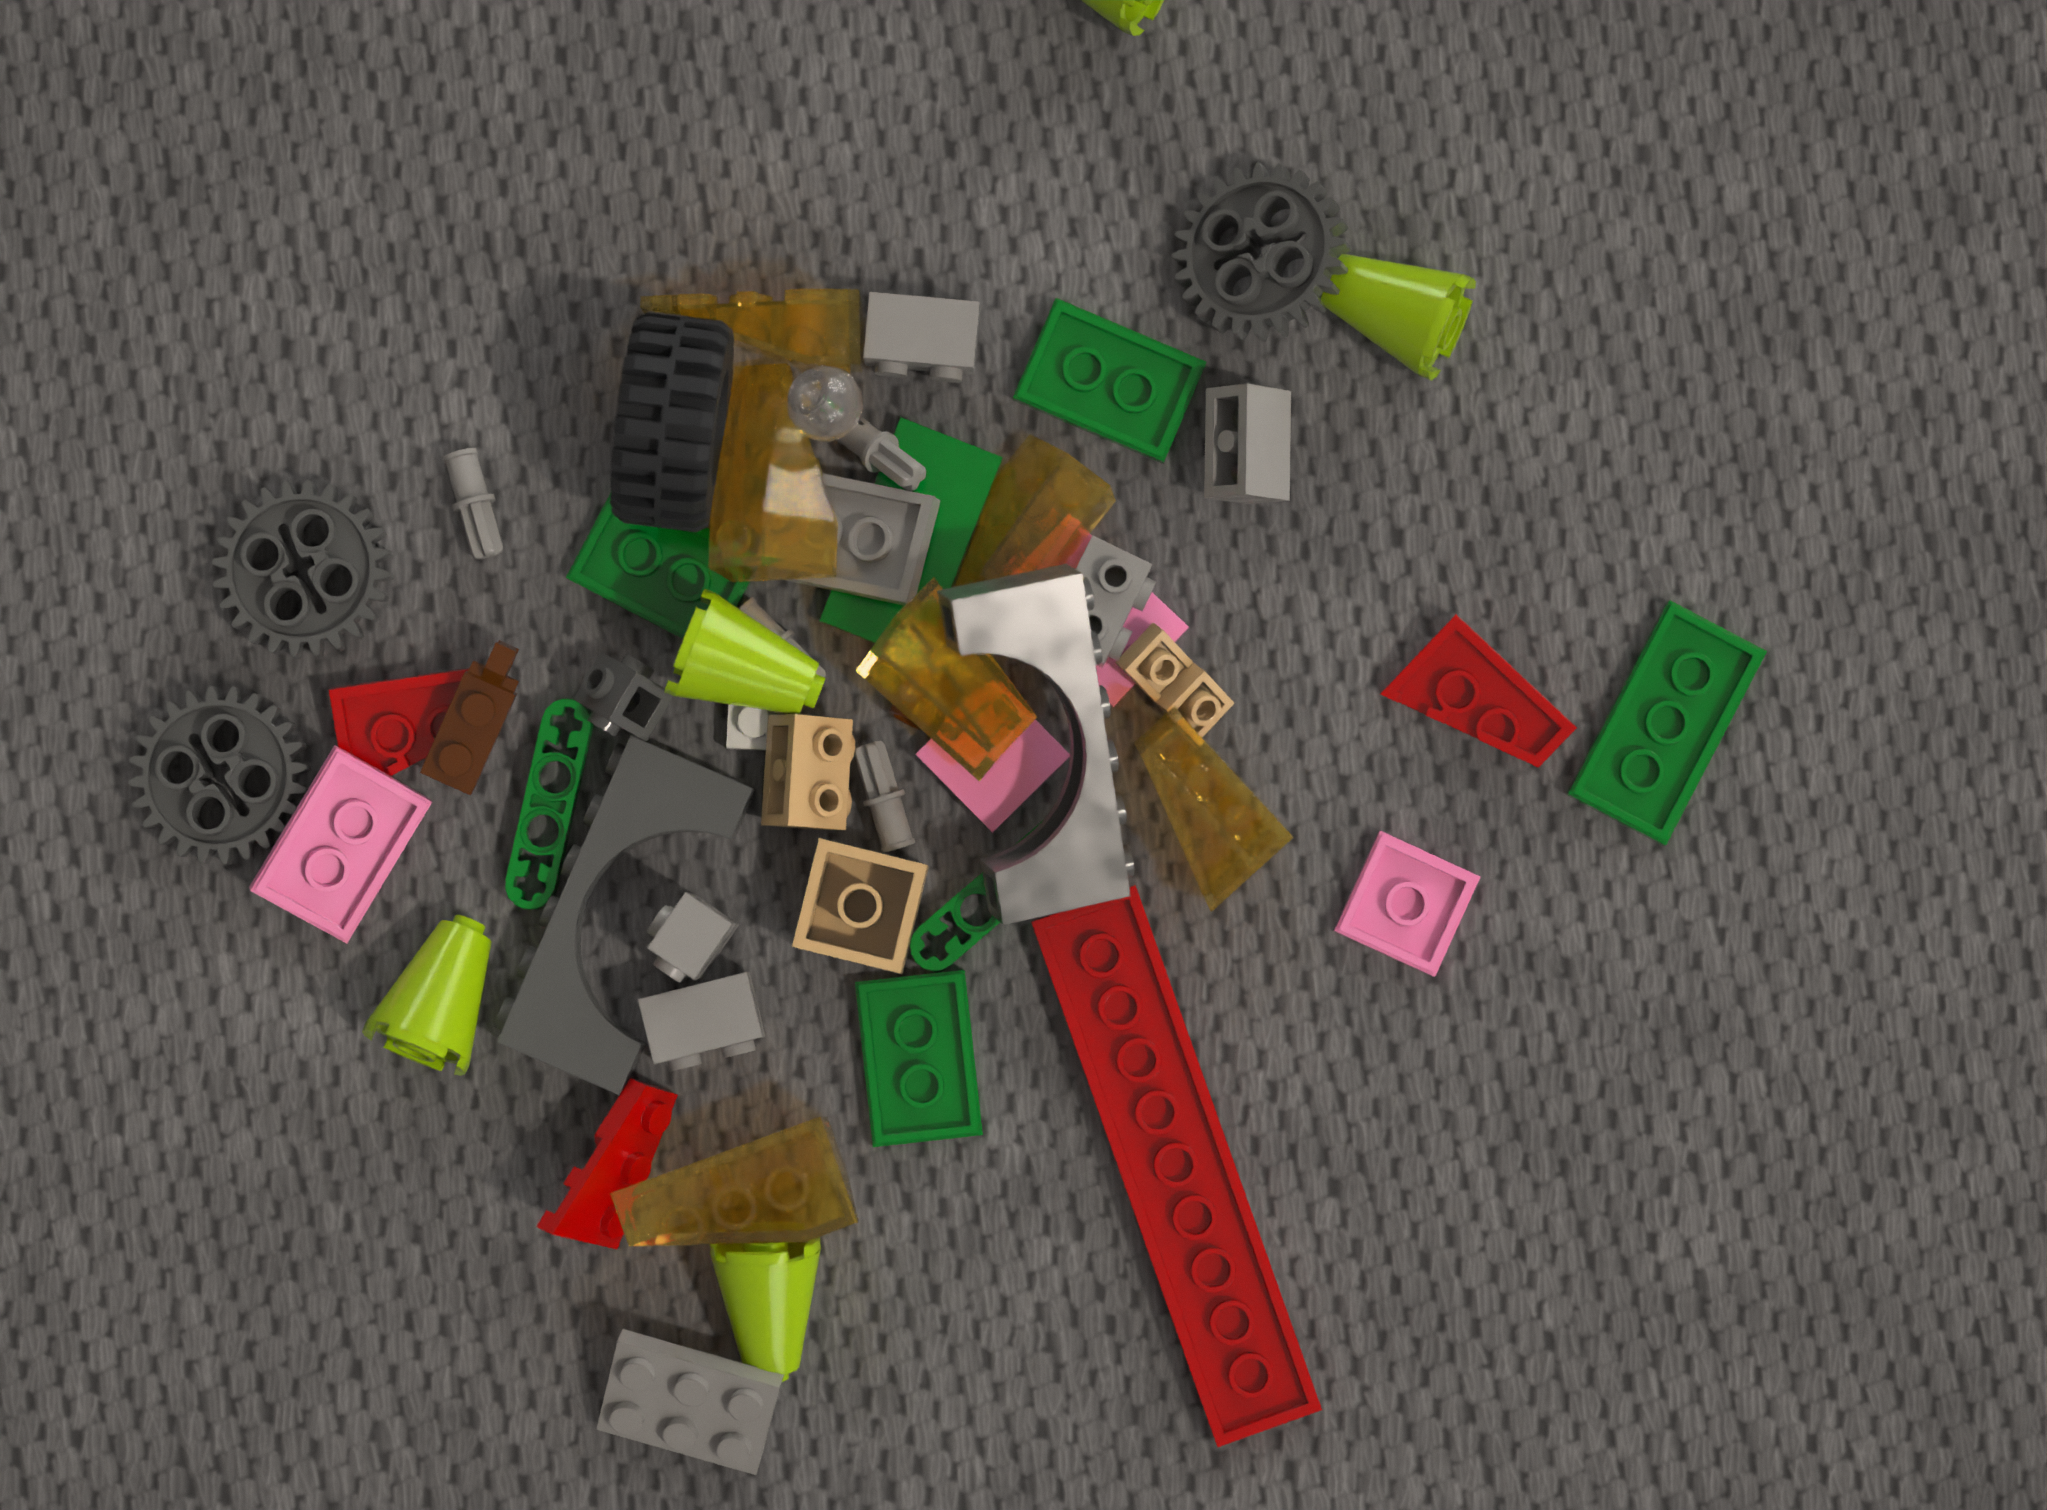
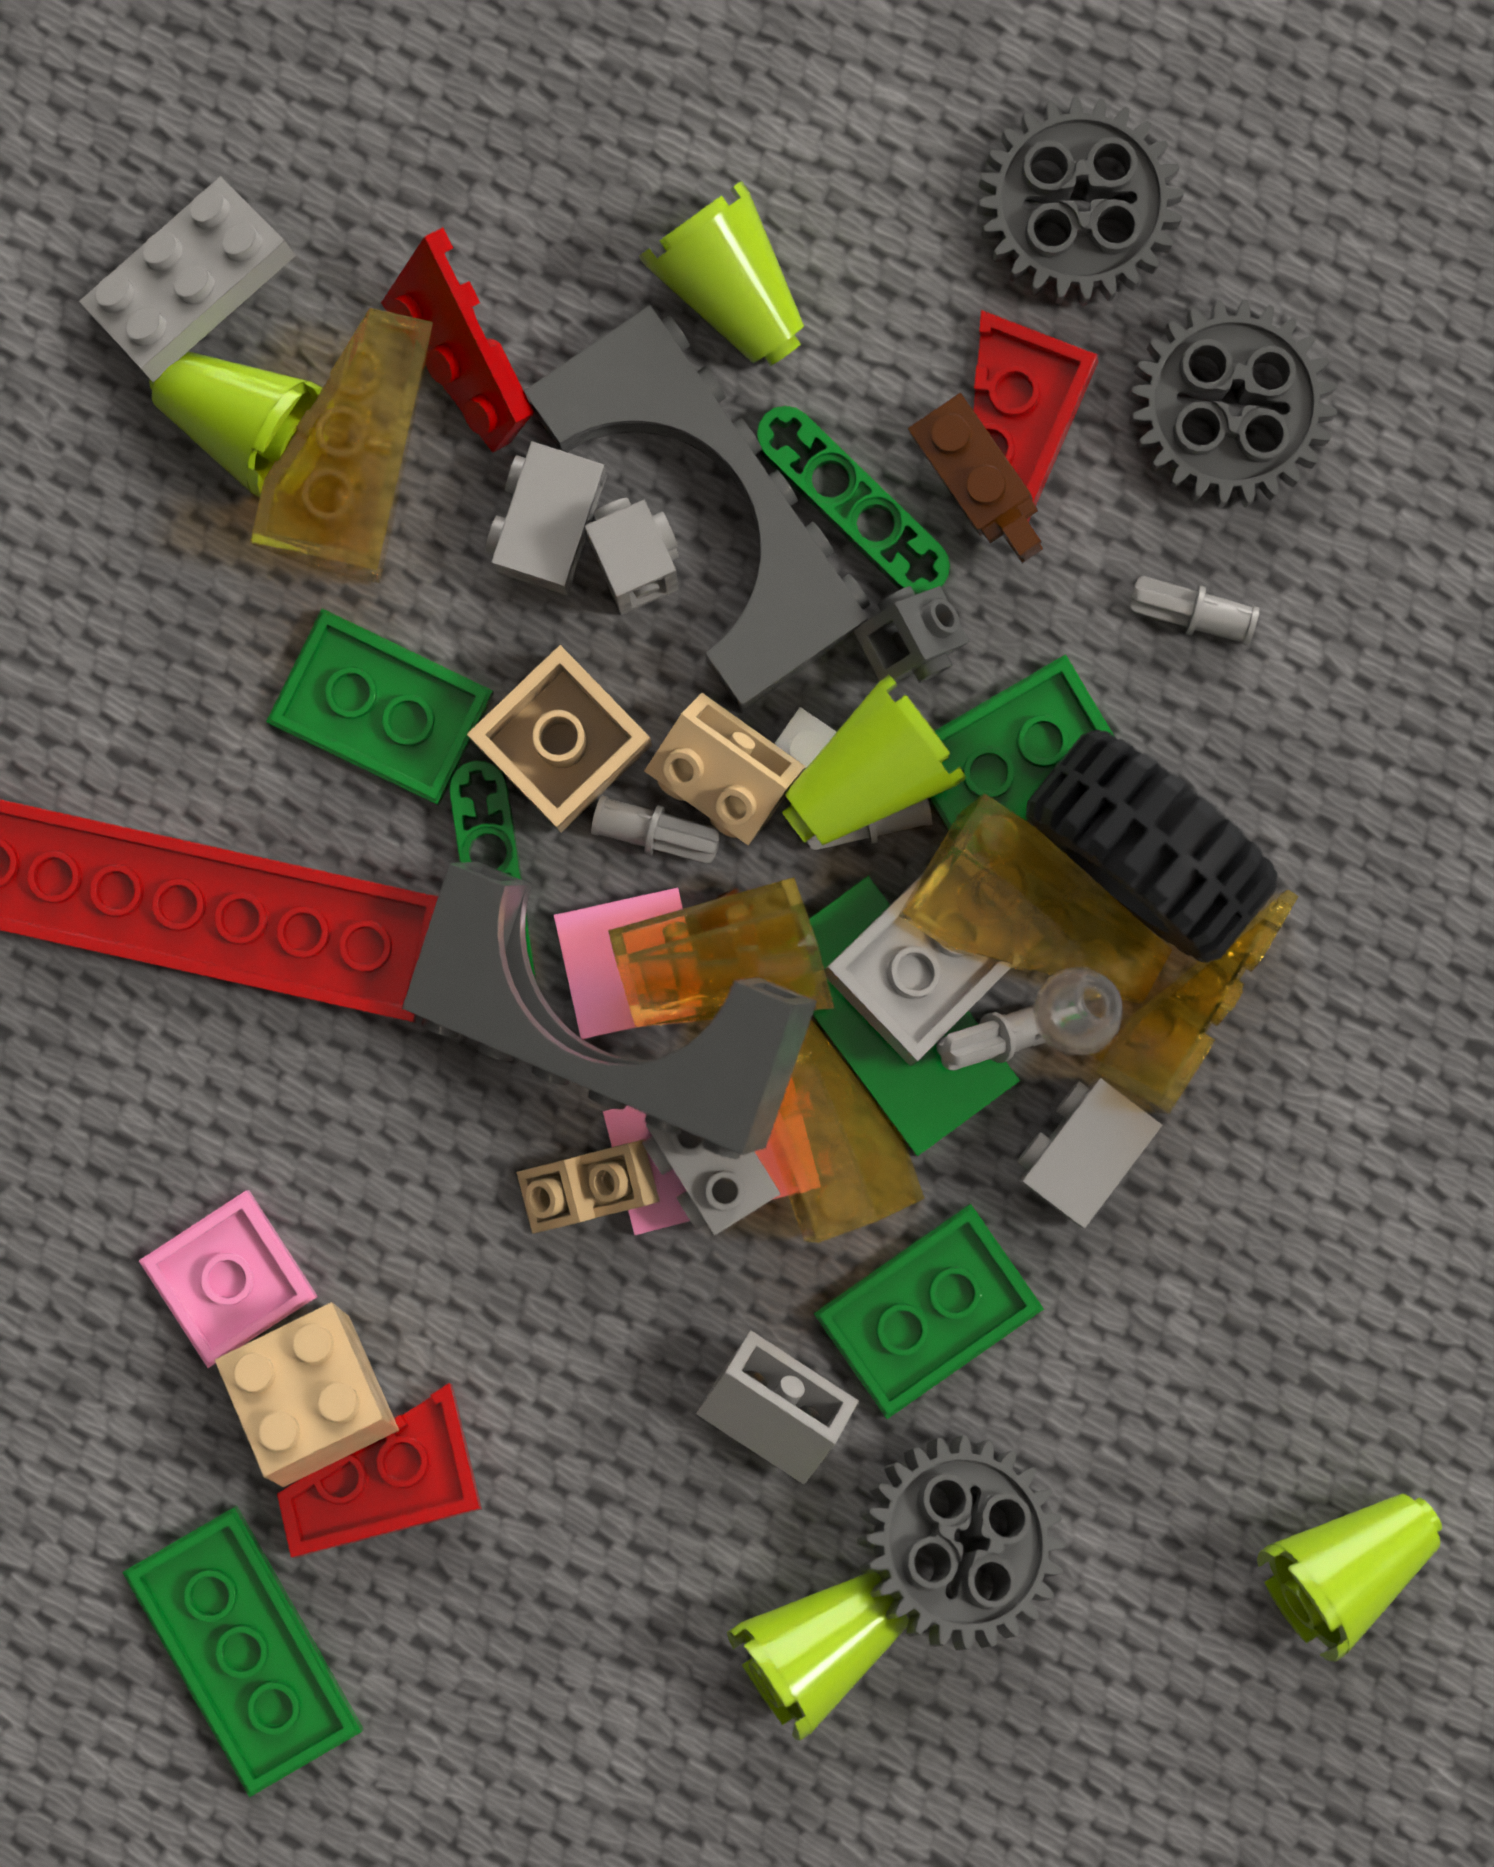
camera: 120 degrees right, 0 degrees up
(340, 844) = (939, 275): bright pink tile -> none
(1210, 807) = (438, 1143): clear yellow wedge -> none
(1453, 789) = (306, 1395): none -> tan brick

